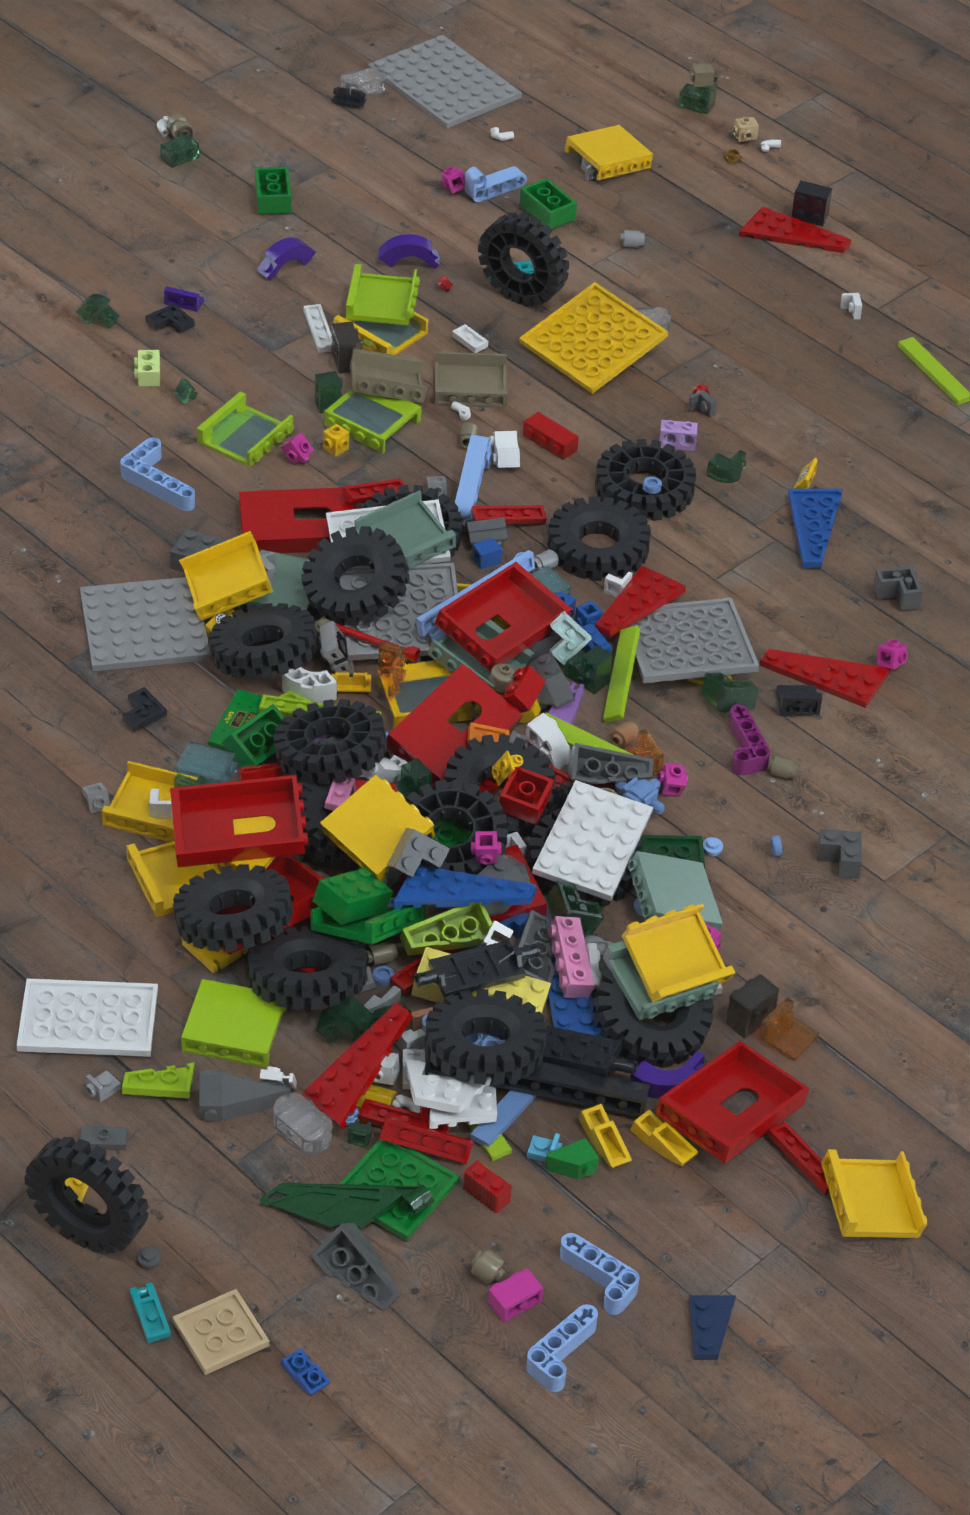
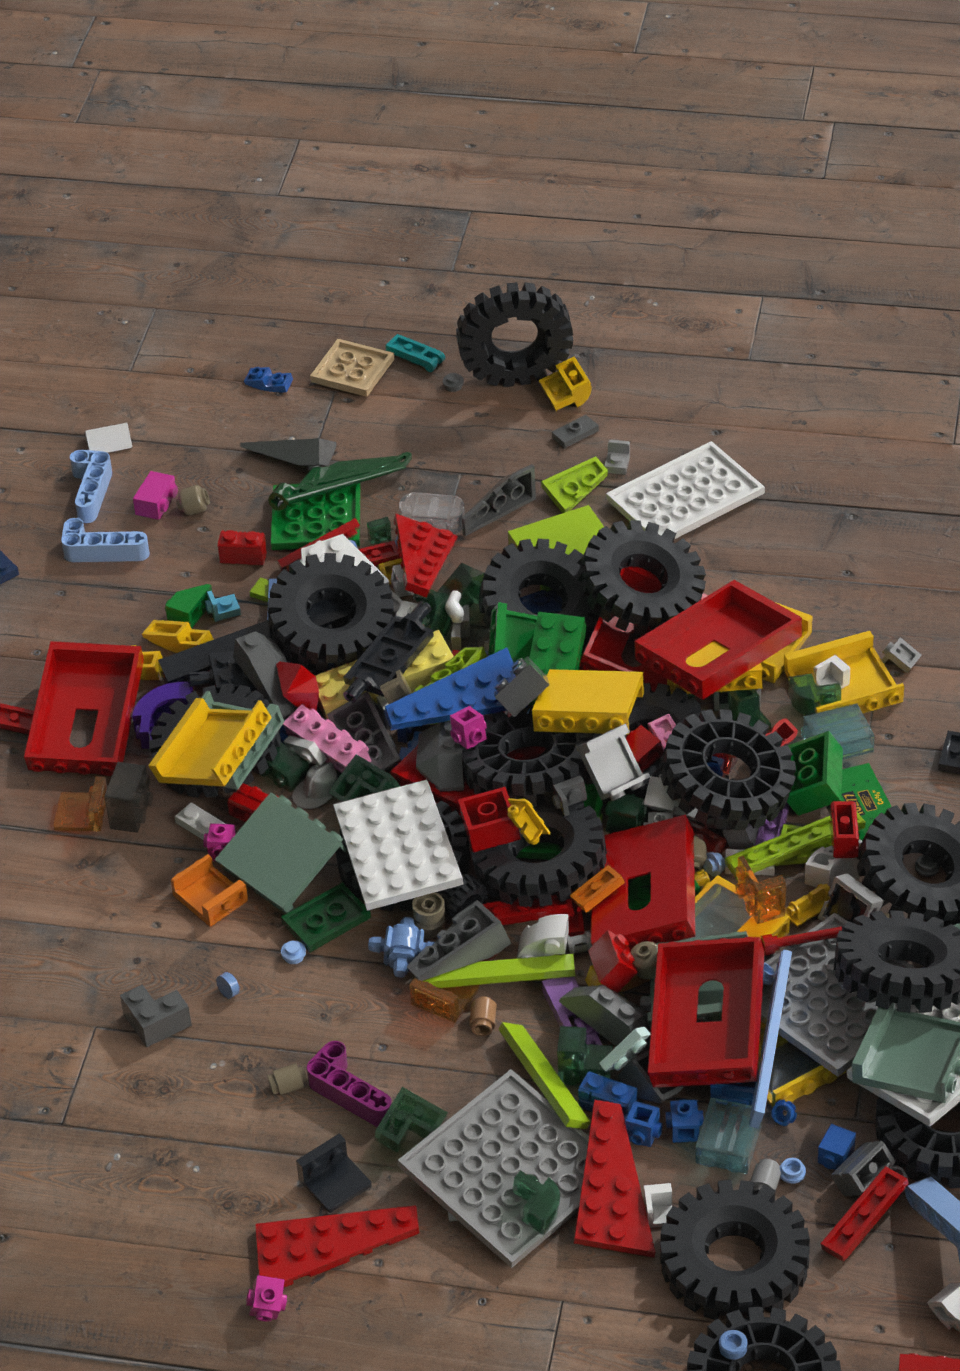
camera: 150 degrees right, 0 degrees up
(274, 1075) = (479, 519): white plate -> none
(298, 668) = (844, 829): none -> red brick
(382, 997) = (453, 607): none -> white arm
(408, 771) = (612, 763): none -> light grey panel
(450, 776) = (569, 793): none -> dark grey bracket
(504, 1398) = (109, 438): none -> white panel
(560, 996) = (298, 685): none -> red slope
(572, 1027) = (258, 659): none -> dark grey wedge
(672, 779) = (387, 986): dark pink brick -> none
(692, 603) = (542, 1201): none -> clear green brick
(740, 916) = (208, 891): none -> orange panel

